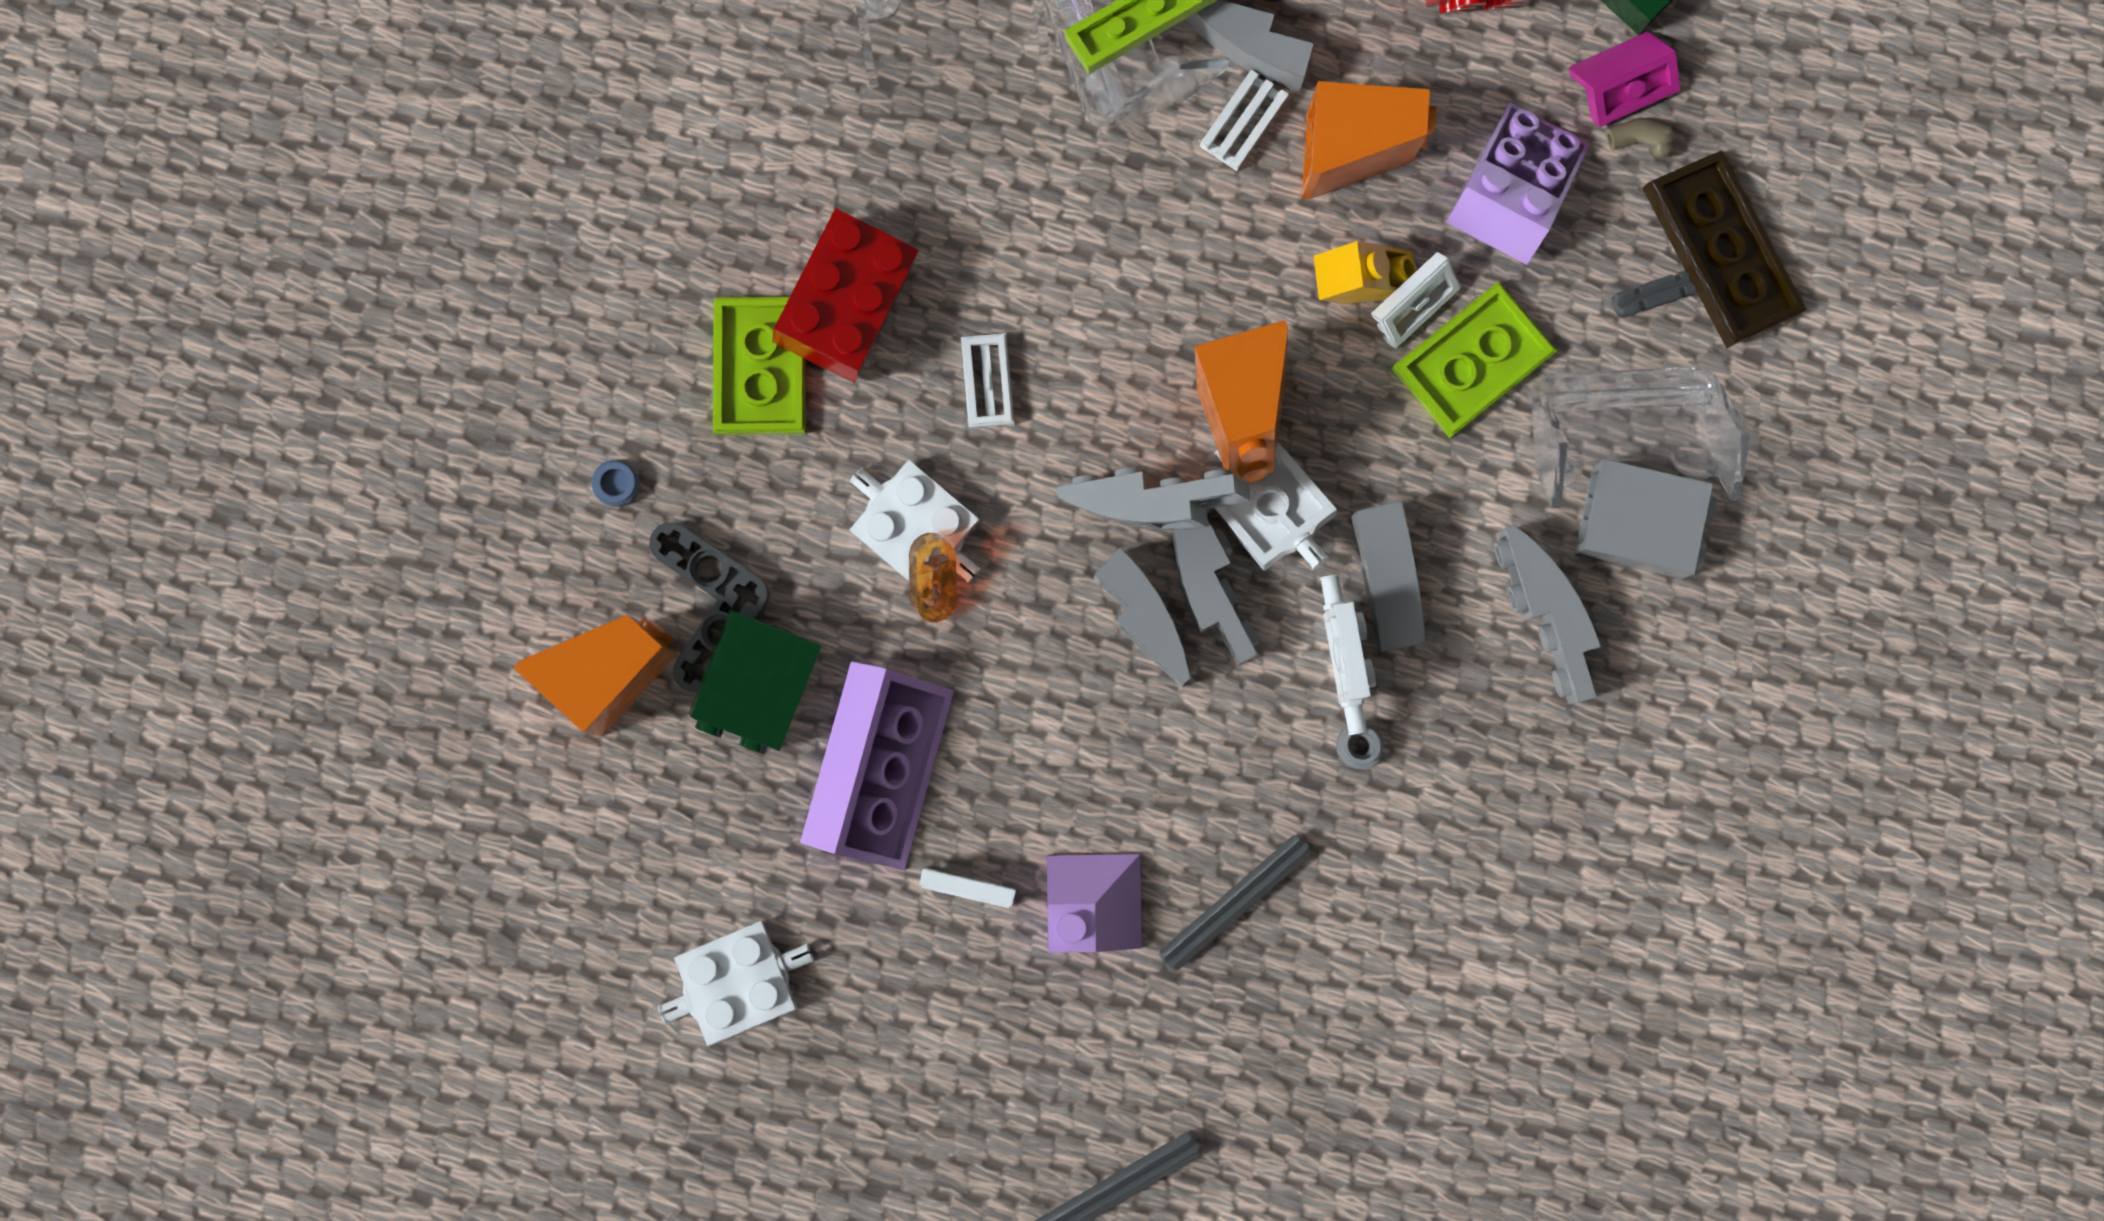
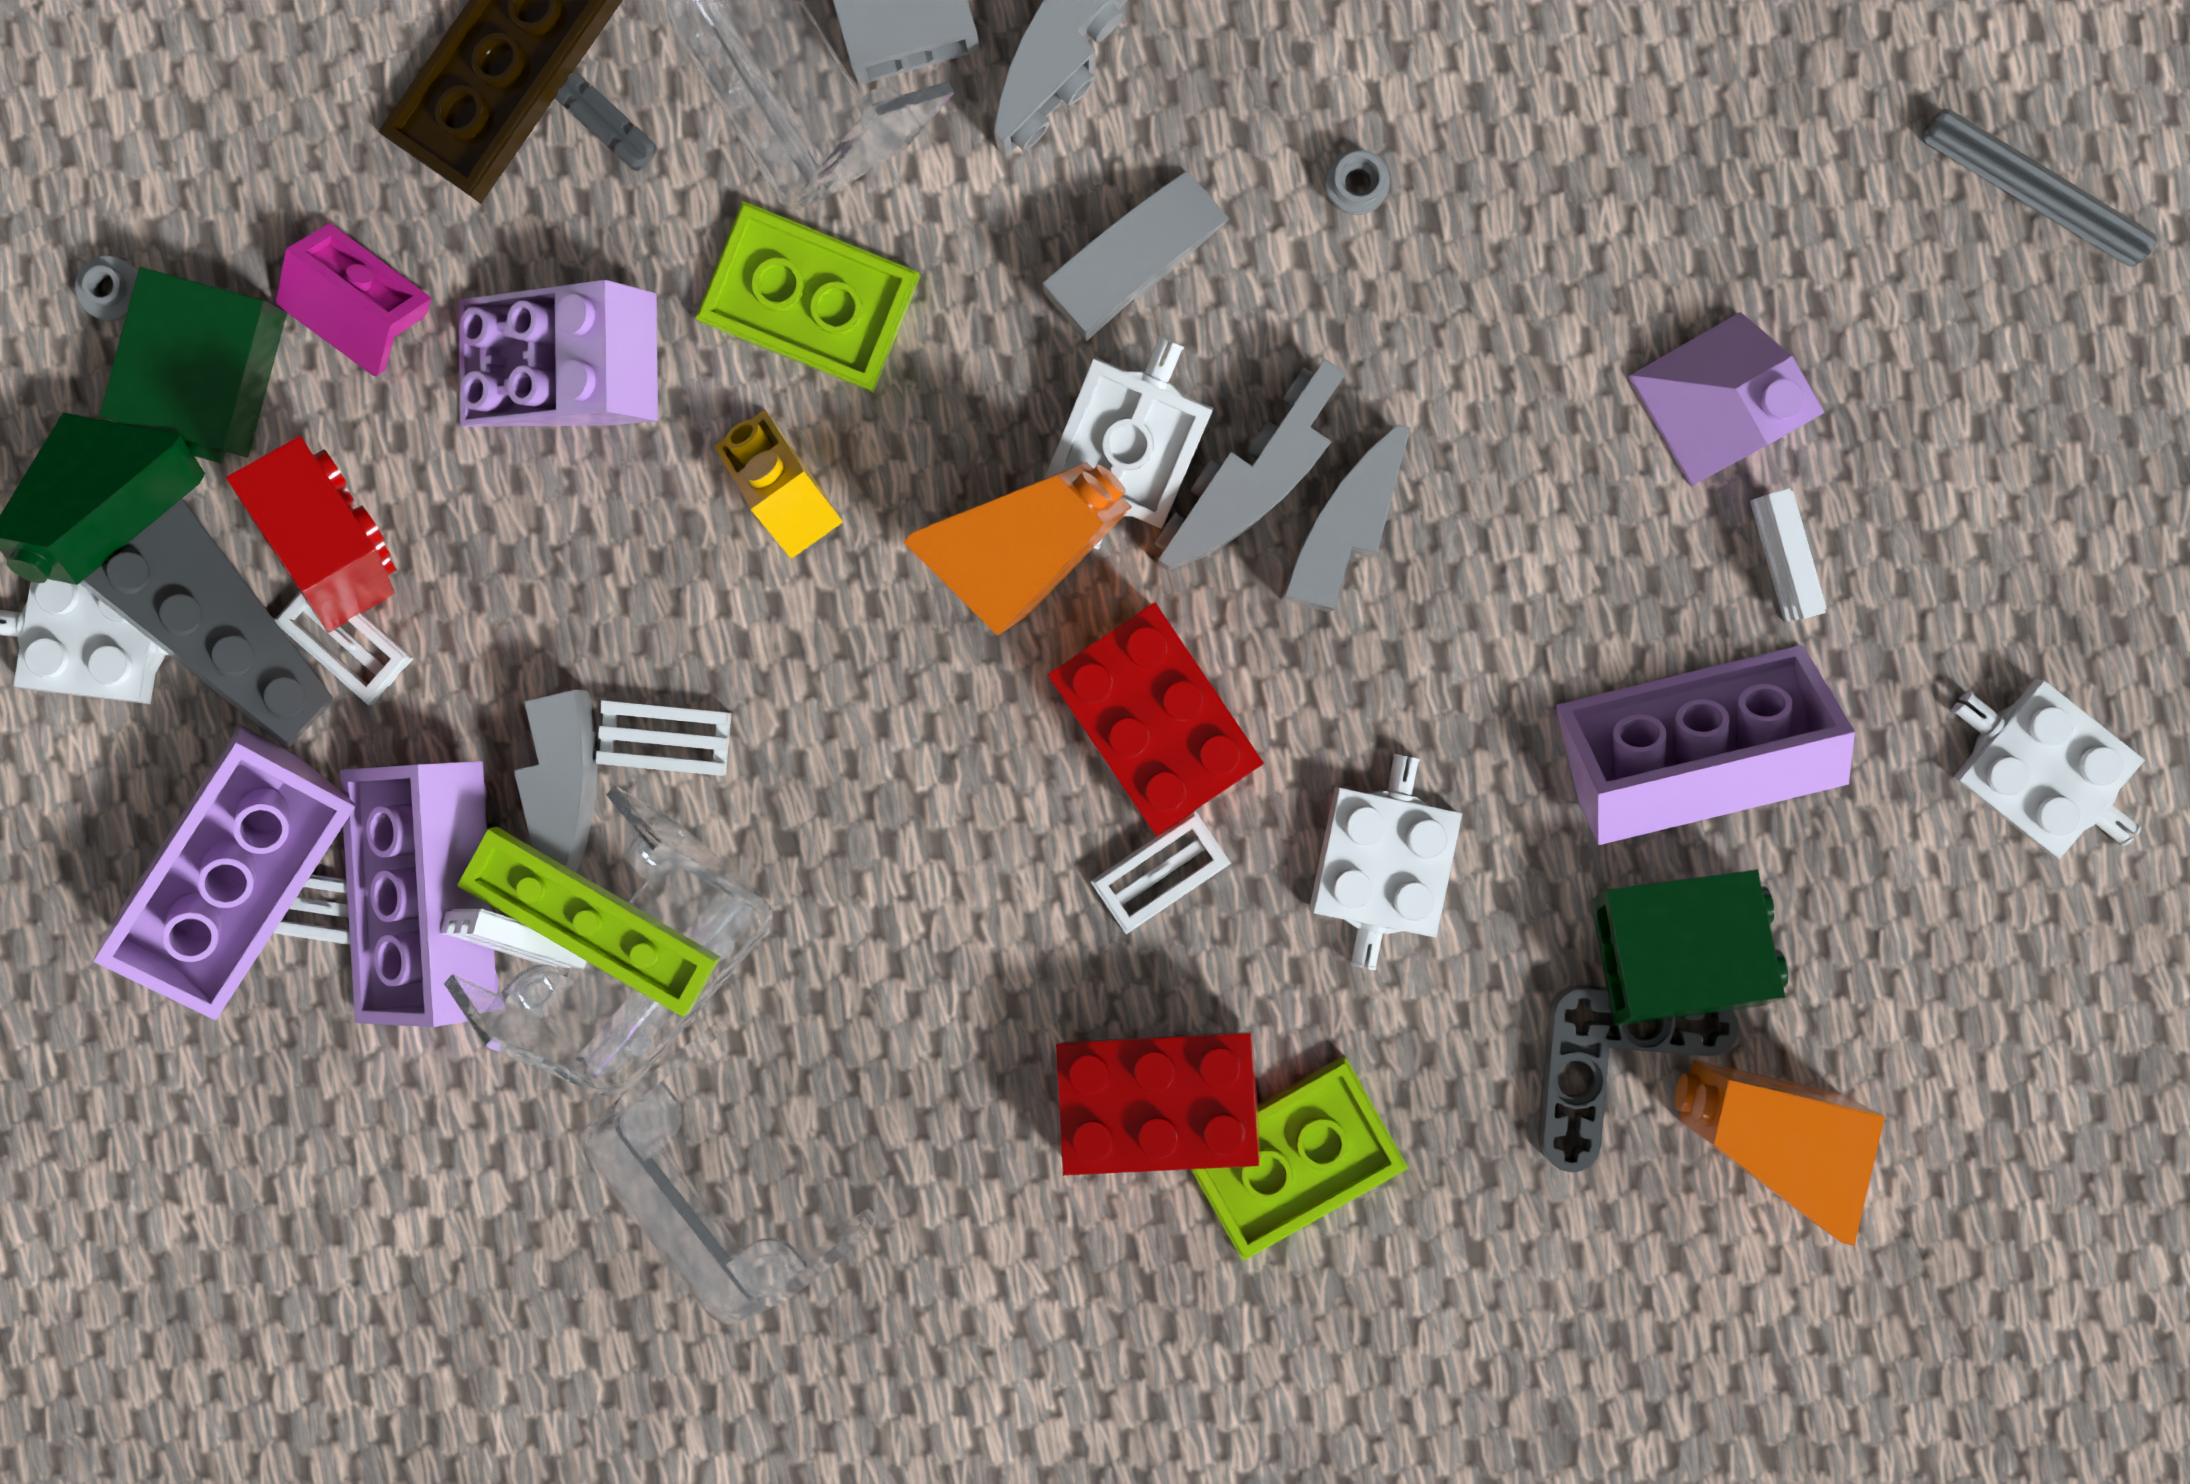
camera: 115 degrees left, 5 degrees up
(615, 483) = (1532, 1250): sand blue tile -> none
(942, 577) = (1435, 794): clear orange beam -> none
(1087, 425) = (1155, 719): none -> red brick
(1154, 504) = (1215, 591): light grey slope -> none
(1235, 902) = (1626, 229): dark grey axle -> none
(1344, 635) = (1246, 261): white plate -> none
(1362, 133) = (604, 581): orange slope -> none
(1416, 300) = (775, 404): white tile -> none
(1642, 130) = (405, 238): dark tan arm -> none

